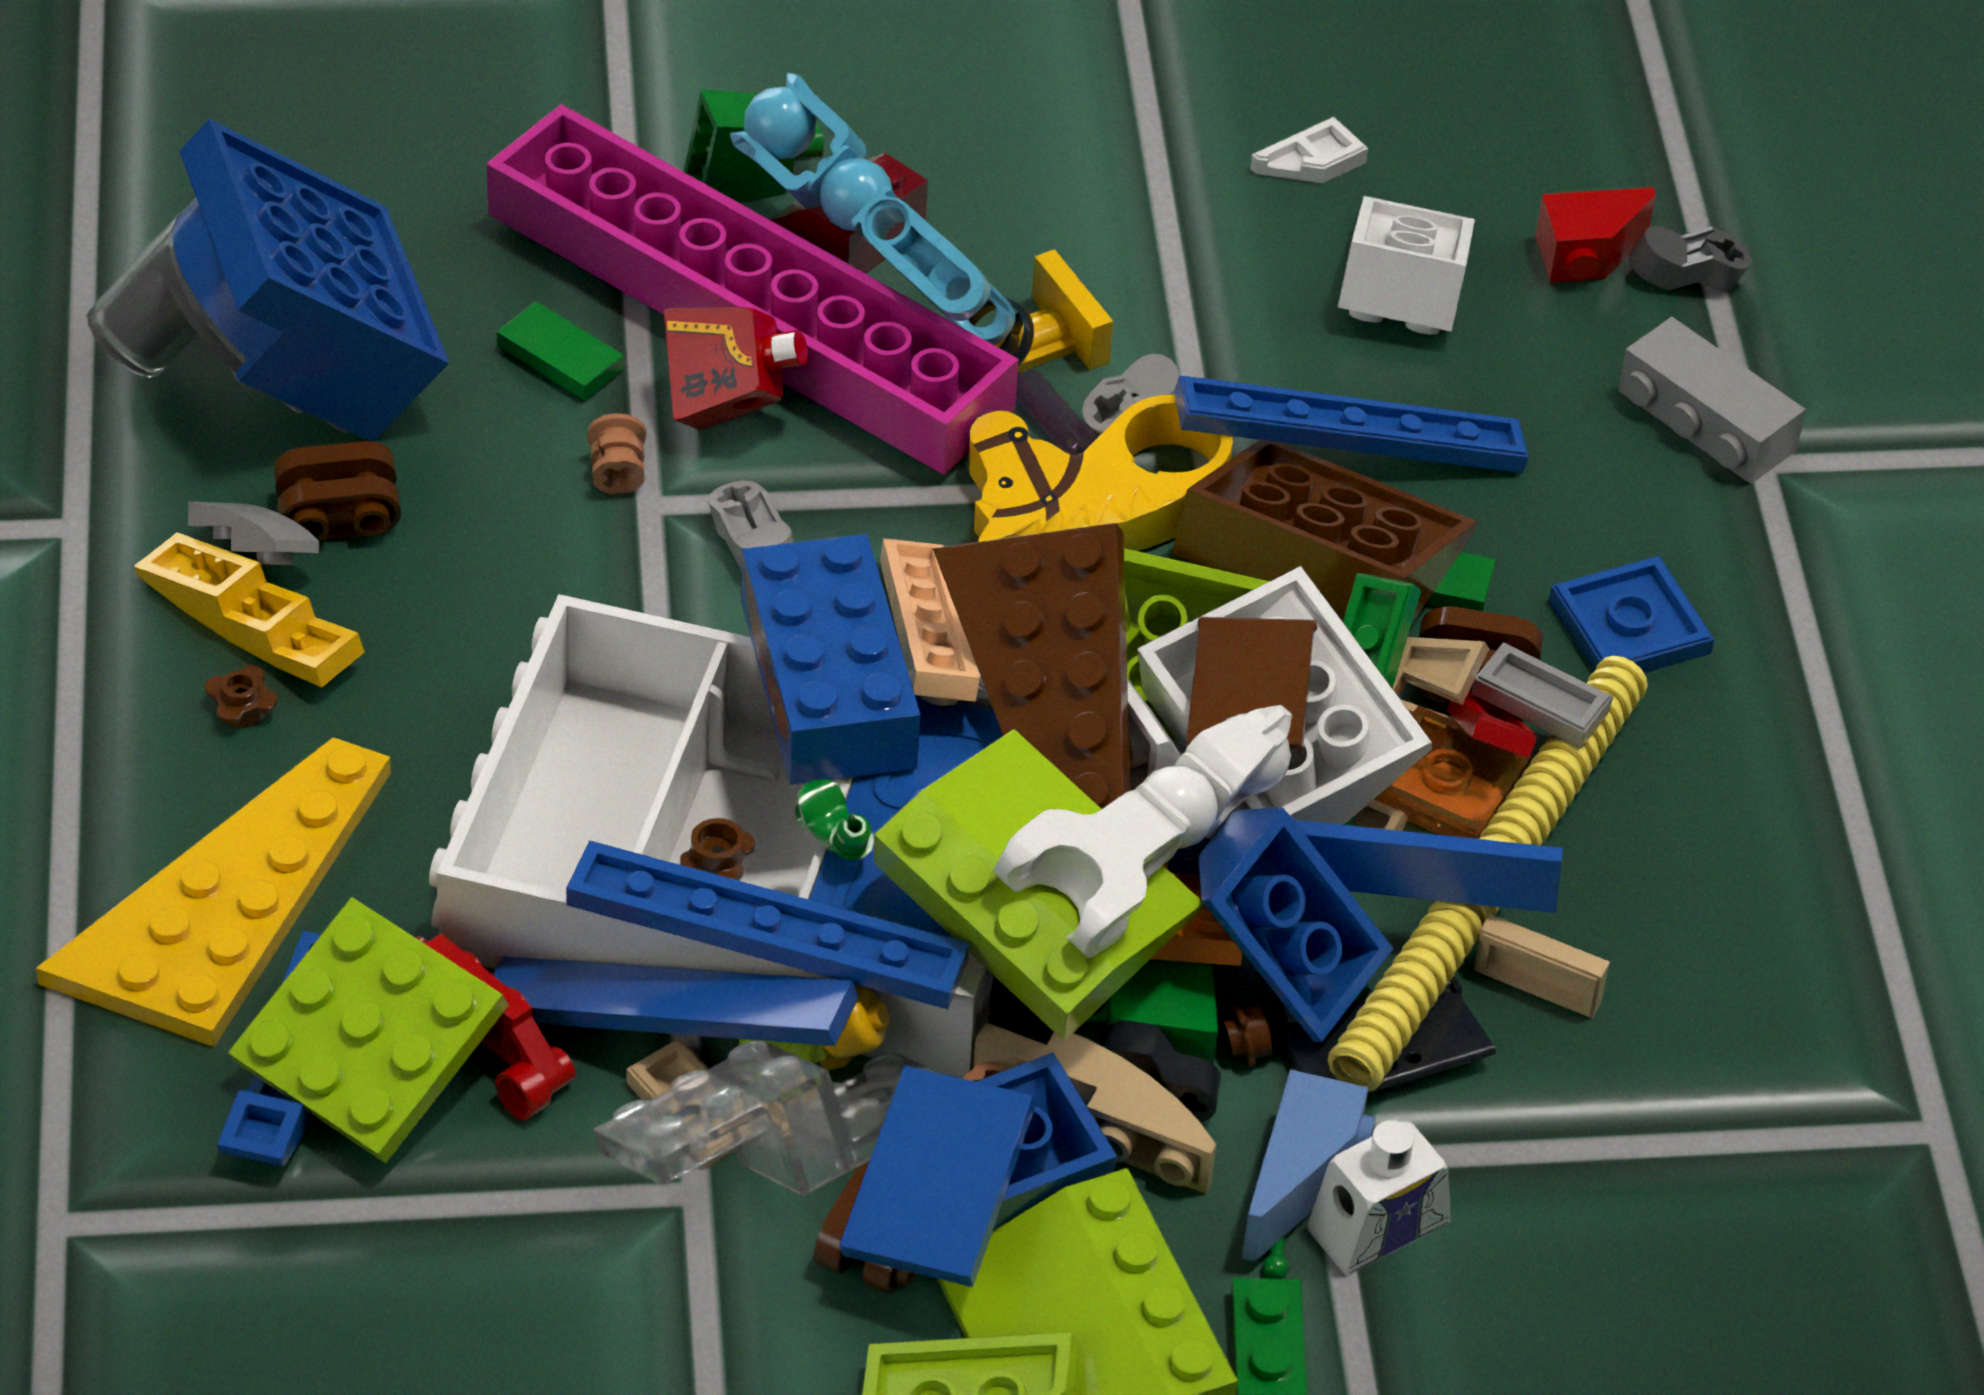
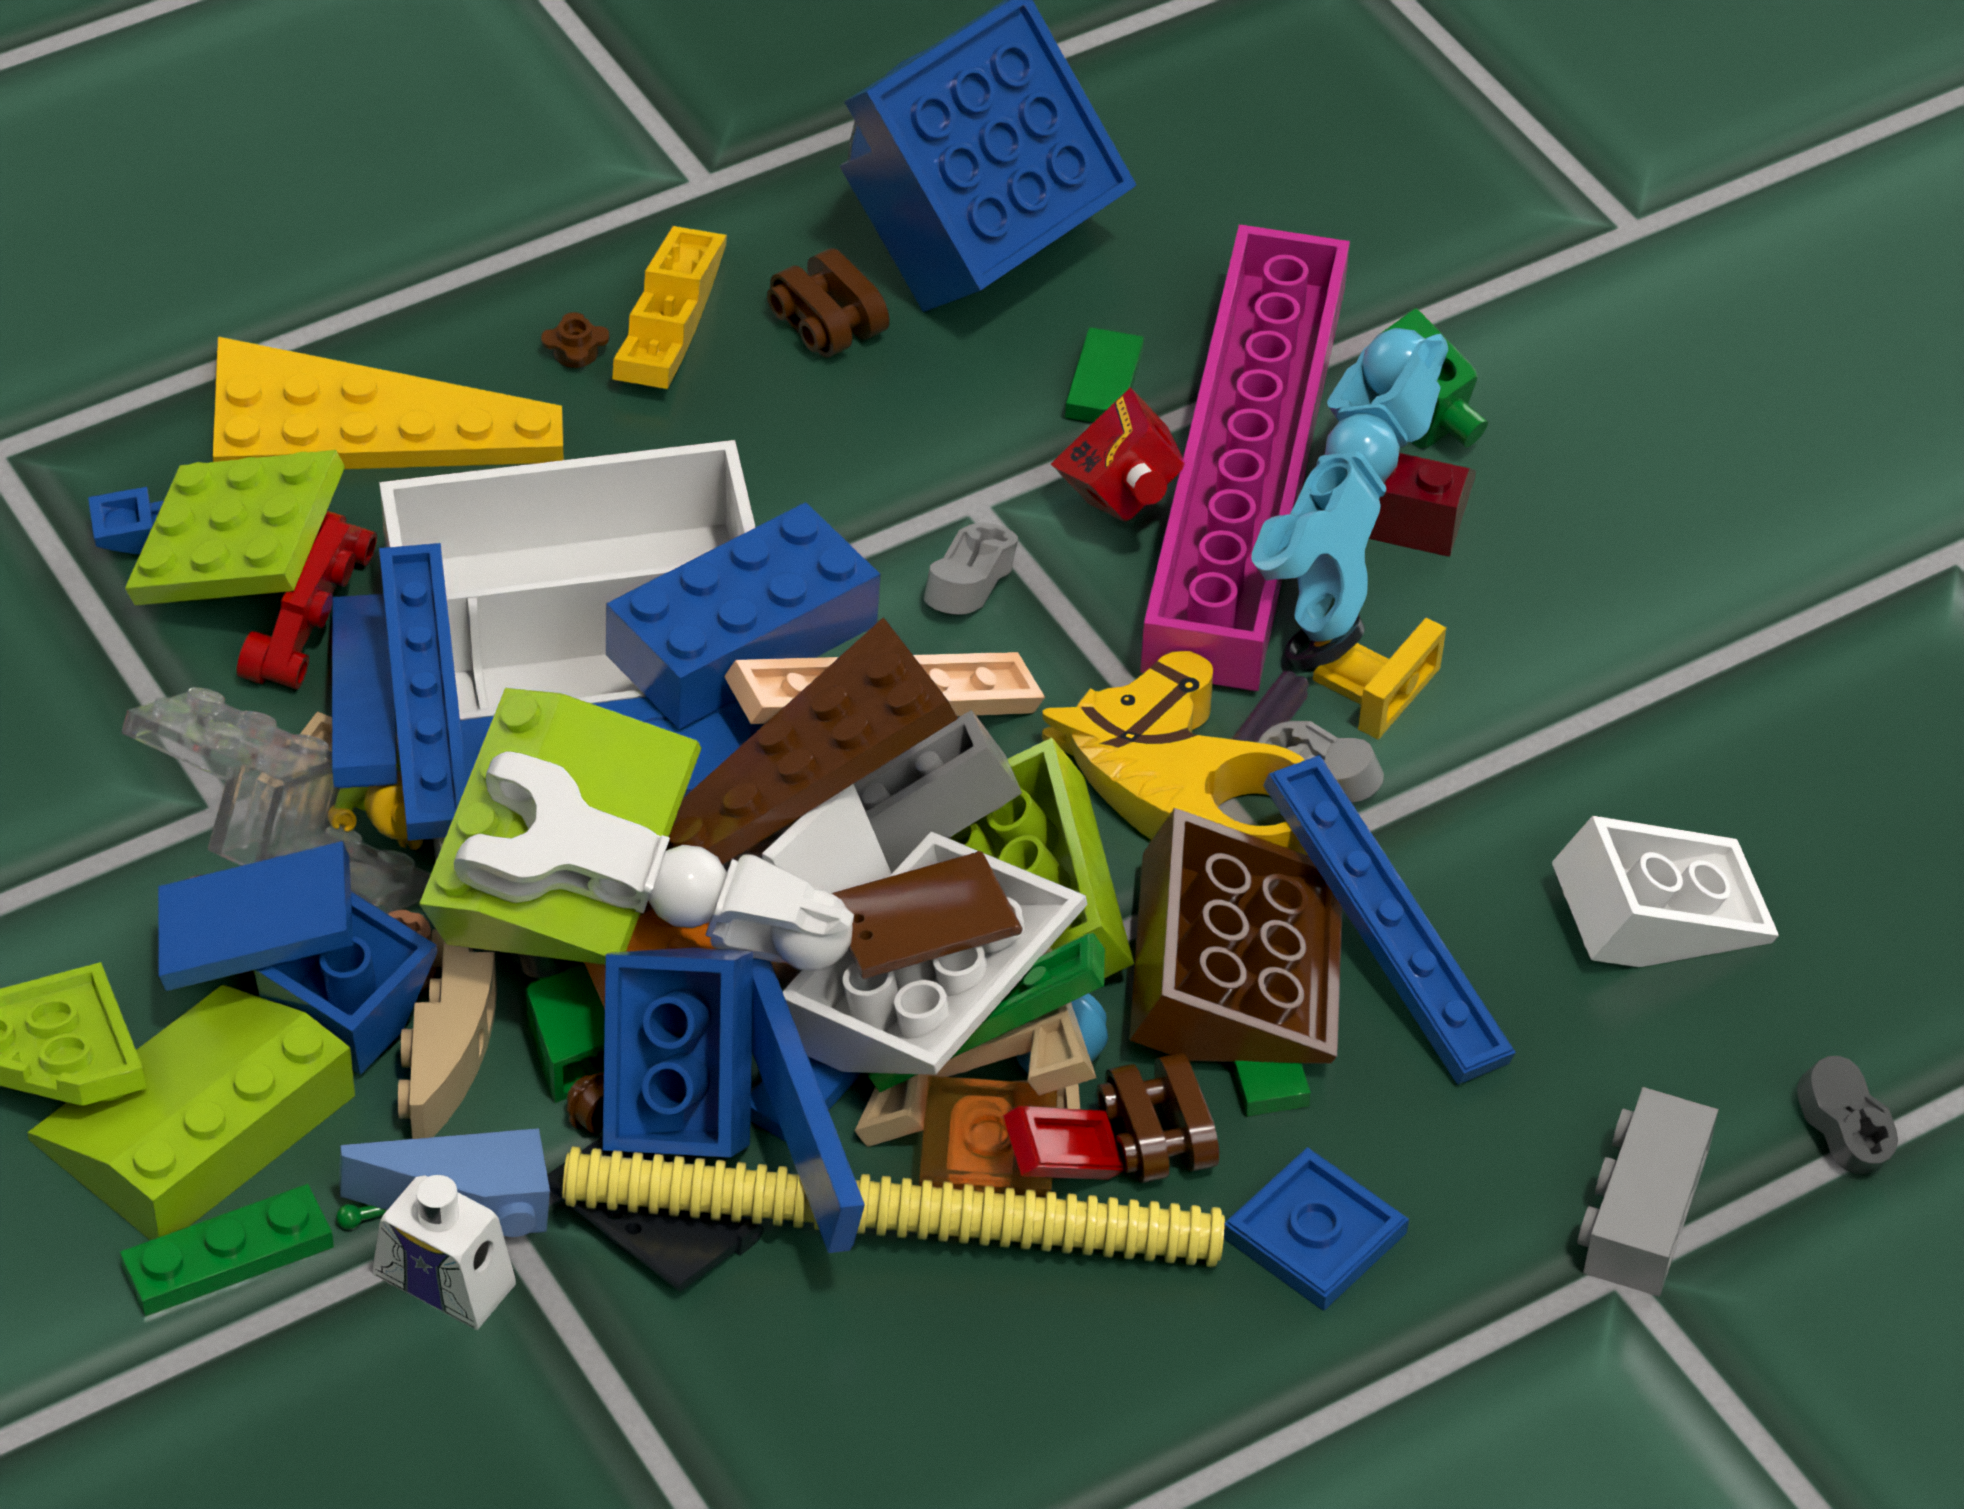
camera: 65 degrees right, 0 degrees up
(254, 530) = (742, 268): light grey slope -> none
(617, 453) = (997, 451): nougat bush -> none
(718, 848) = (494, 632): reddish brown plate -> none
(825, 816) = (576, 676): green piece -> none
(1187, 1077) = (508, 1052): black piece -> none
(1312, 154) = (1770, 786): white tile -> none
(1541, 966) = (799, 1287): tan tile -> none
(1542, 695) = (1111, 1161): light grey tile -> none
(1591, 231) = (1812, 1016): red slope -> none

